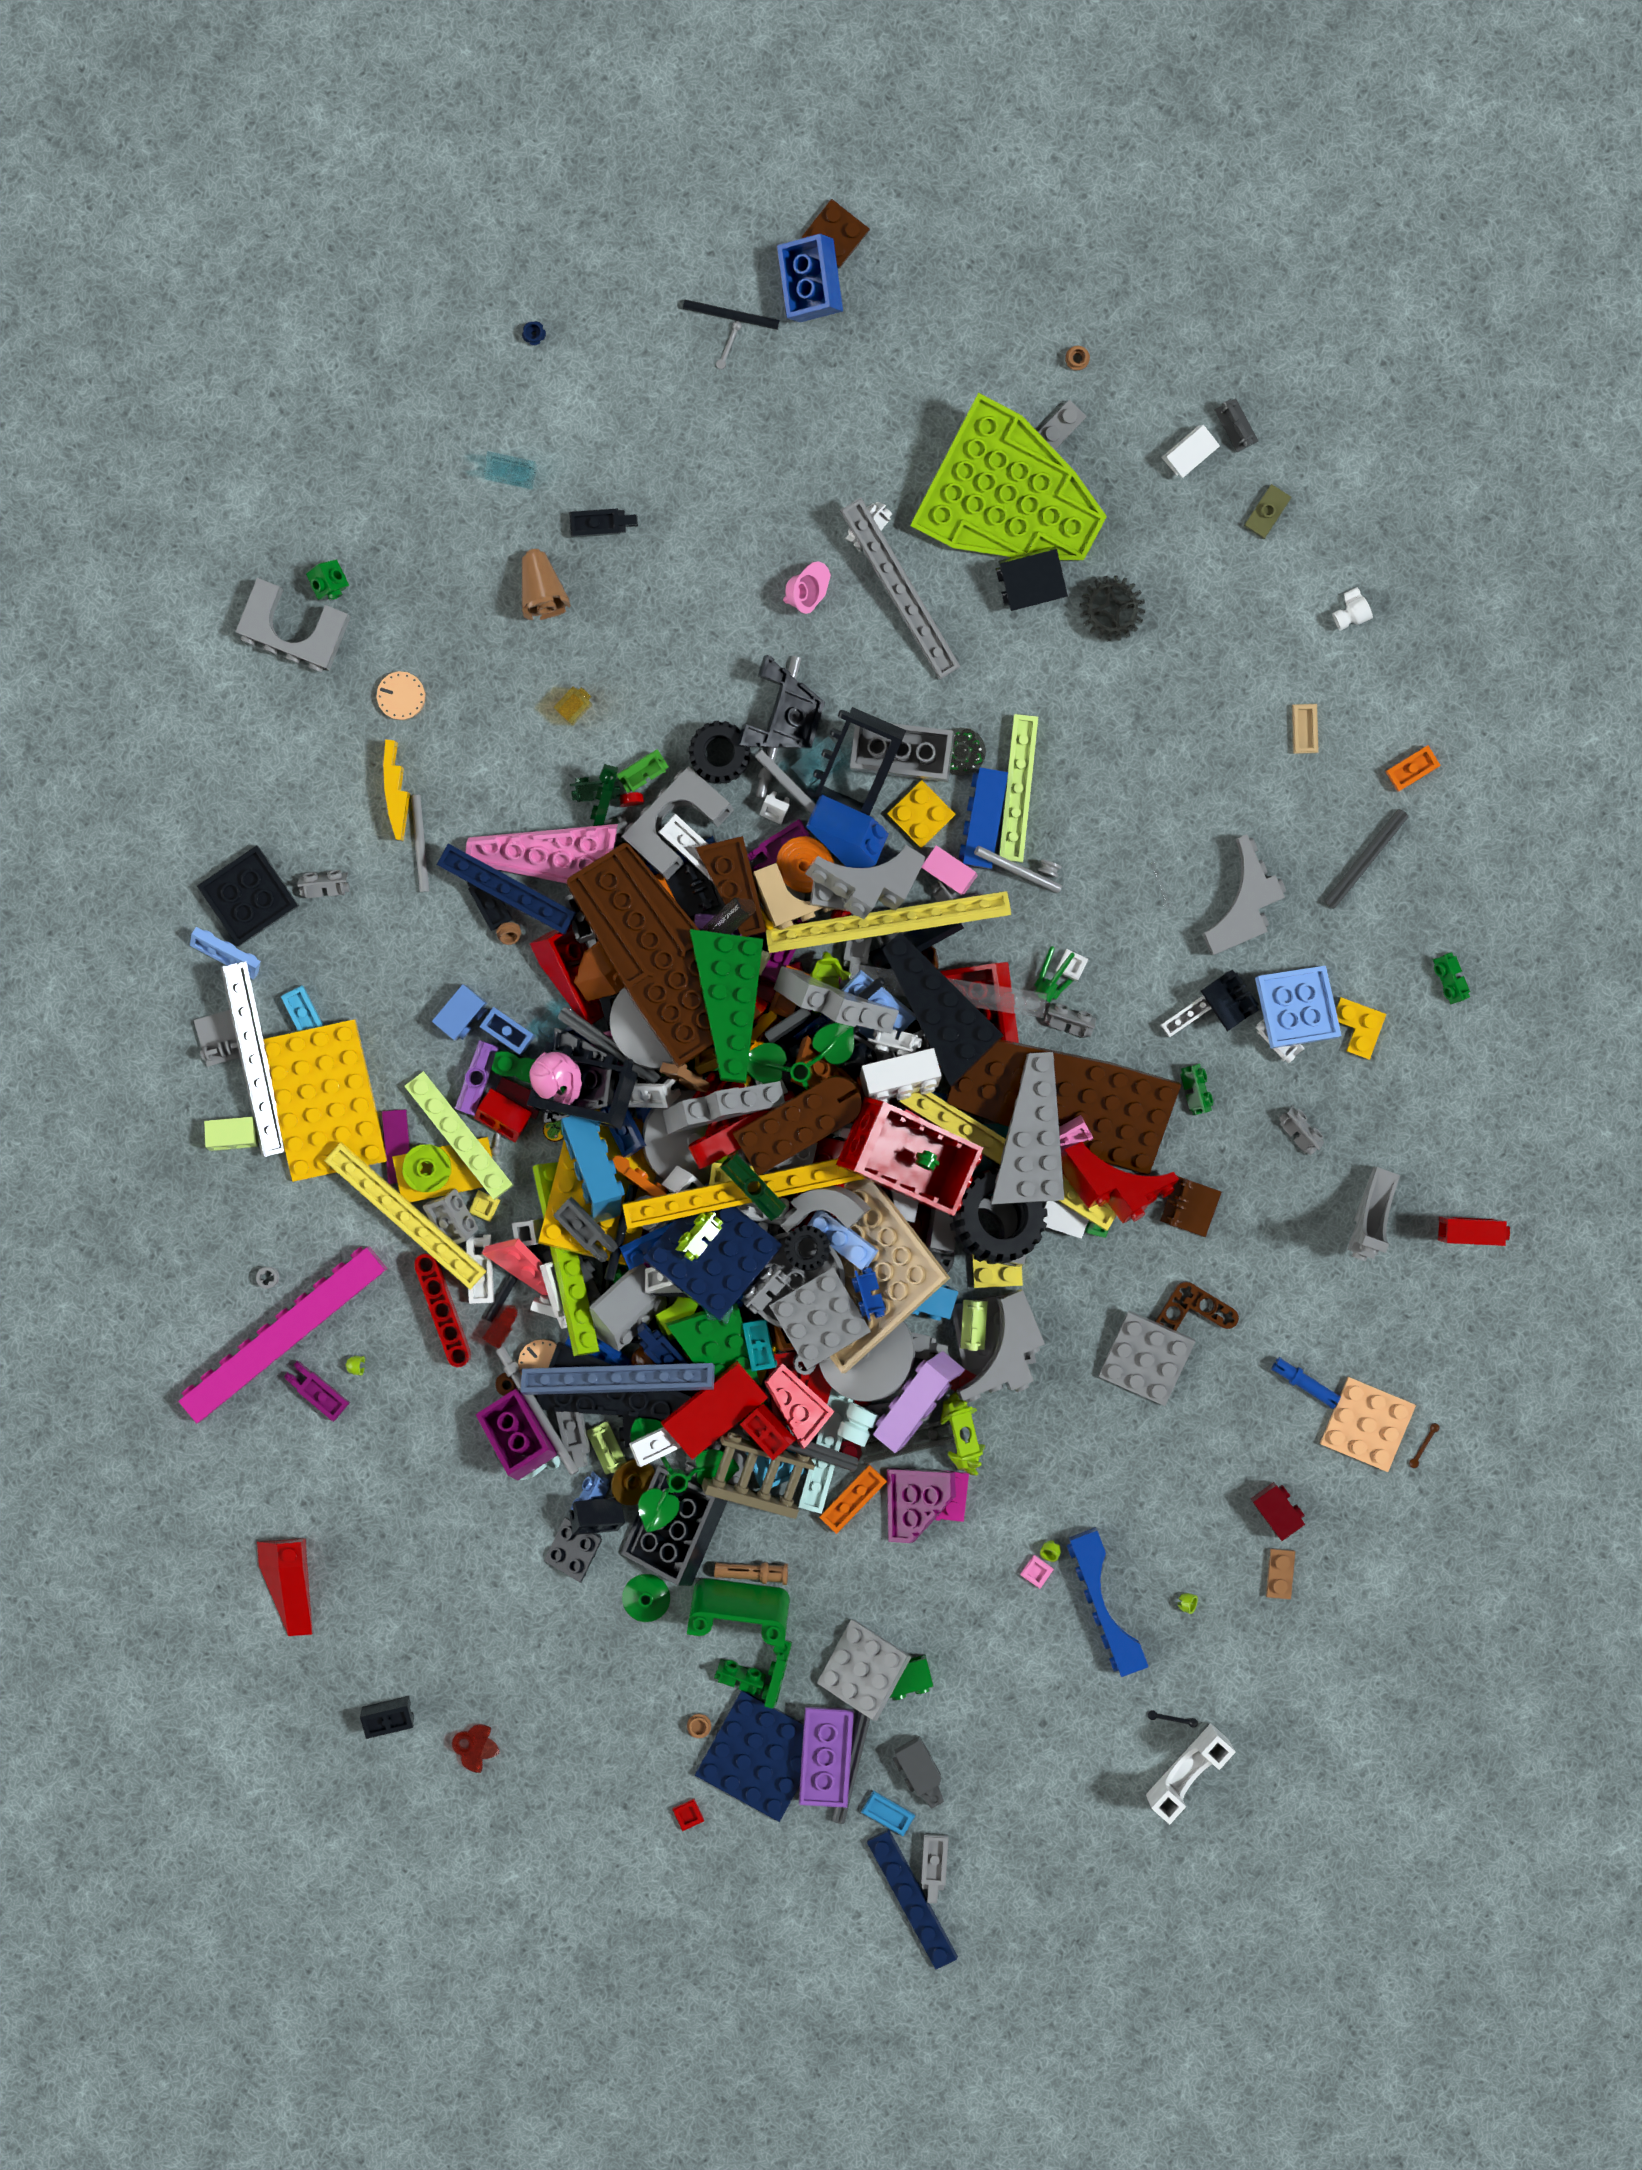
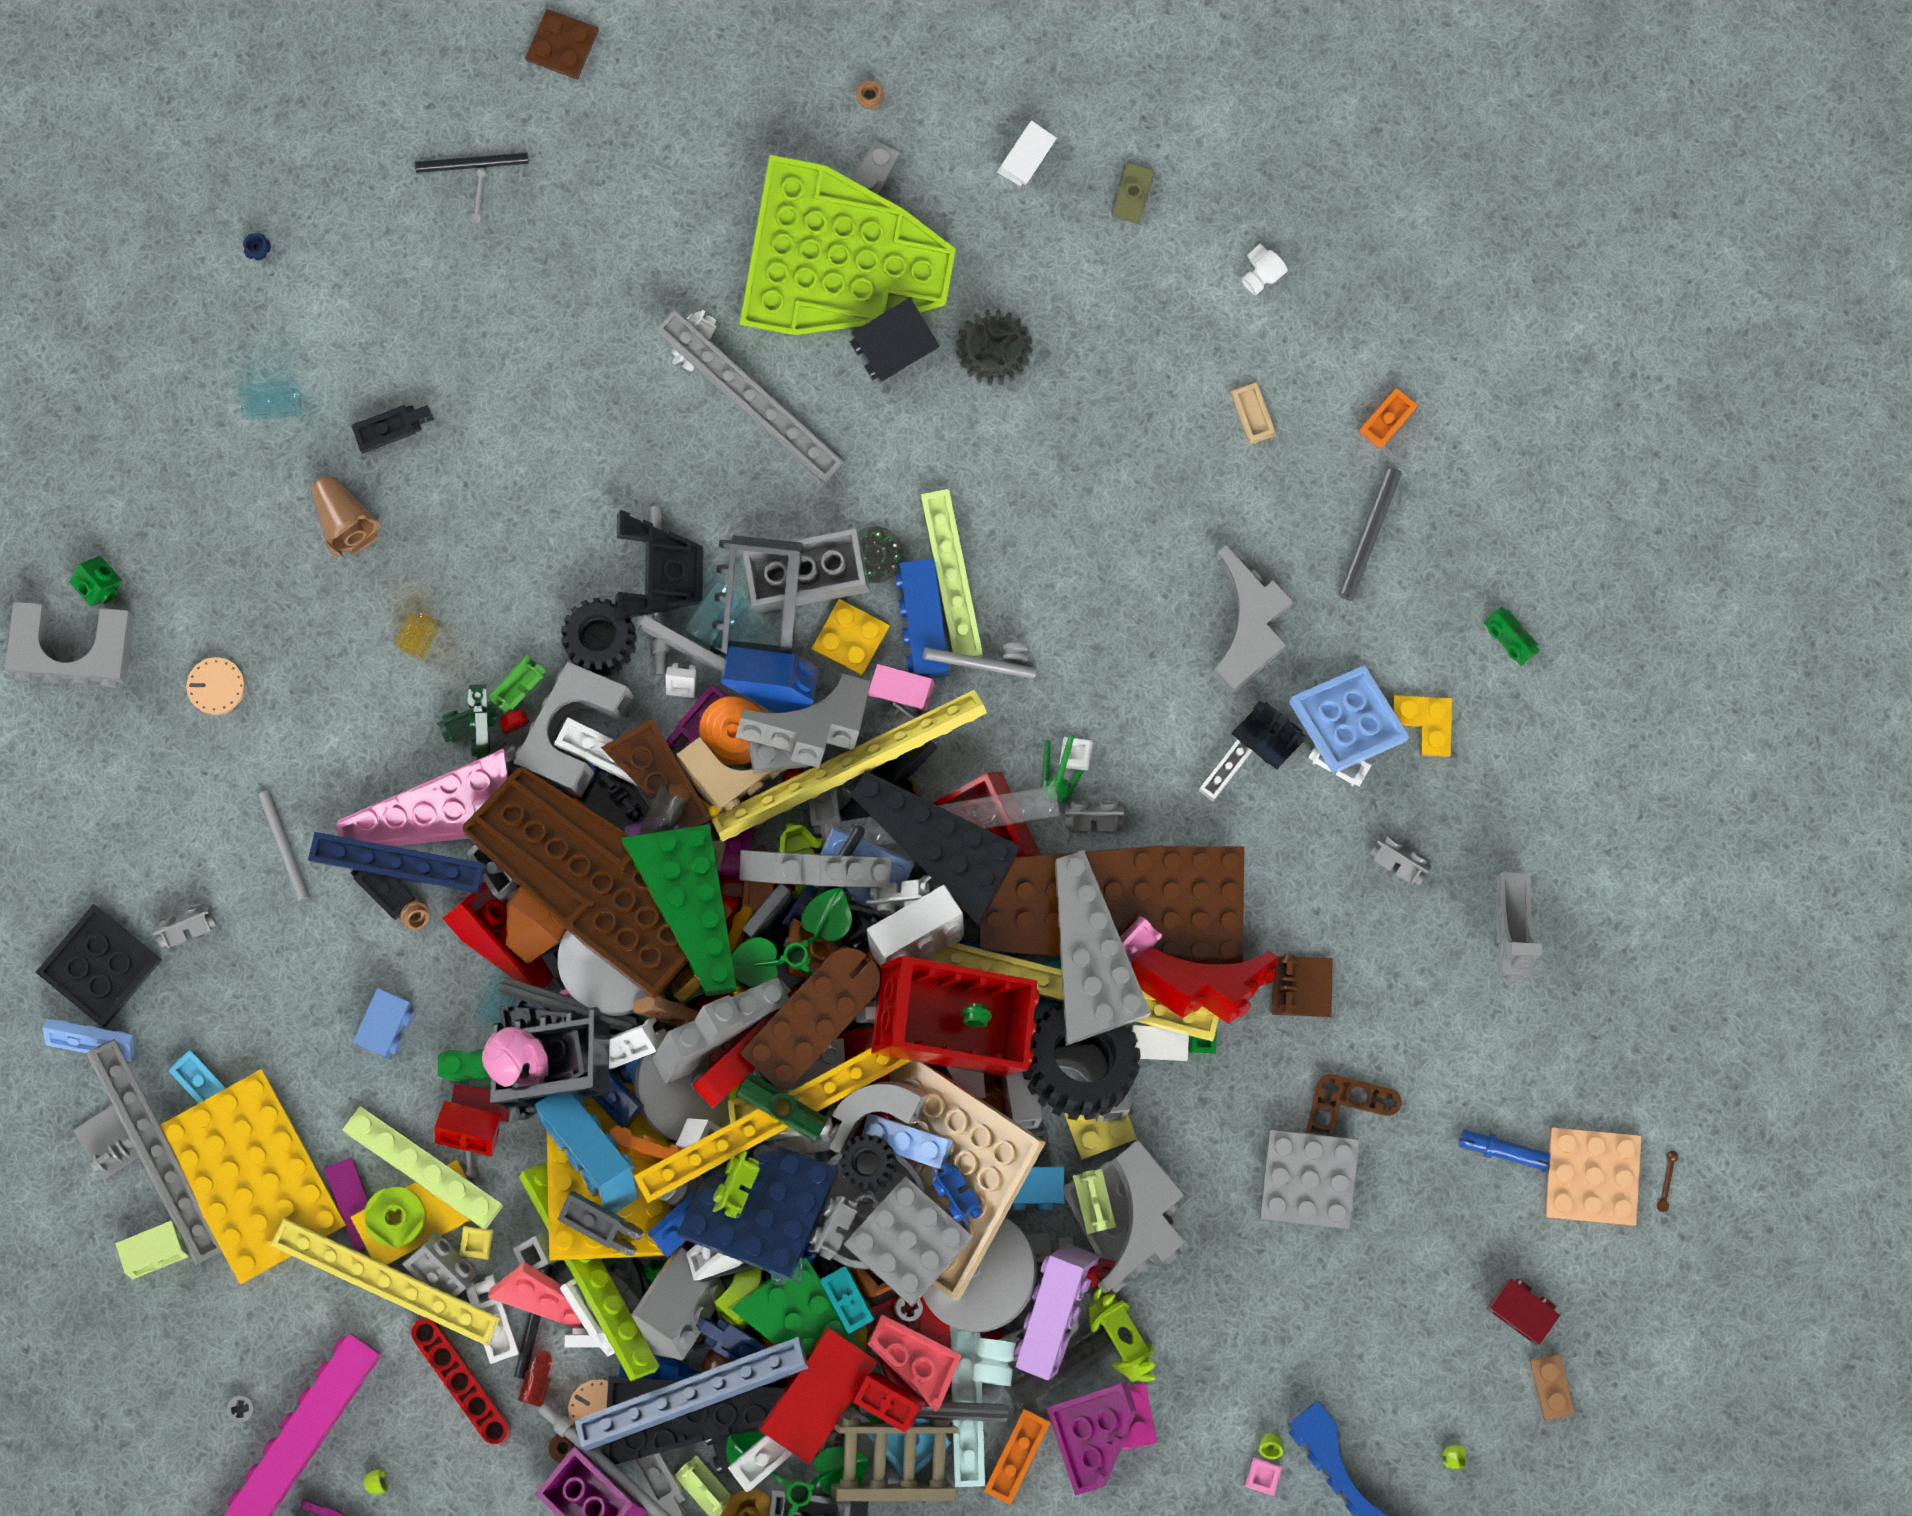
camera: 15 degrees left, 10 degrees down
(396, 800) = (241, 800): yellow slope -> none
(471, 1093) = (424, 1114): medium lavender piece -> none
(507, 1031) = (445, 1027): medium blue brick -> none
(553, 1131) = (532, 1129): tile -> none
(619, 1236) = (644, 1224): black bar -> none
(808, 588) = (645, 426): bright pink piece -> none
(810, 278) = (547, 95): blue brick -> none
(851, 1449) = (996, 1395): dark red plate -> none
(1196, 1079) = (1260, 839): green hinge -> none
(1236, 425) = (1067, 112): dark grey hinge -> none
(1473, 1231) = (1636, 910): red window -> none

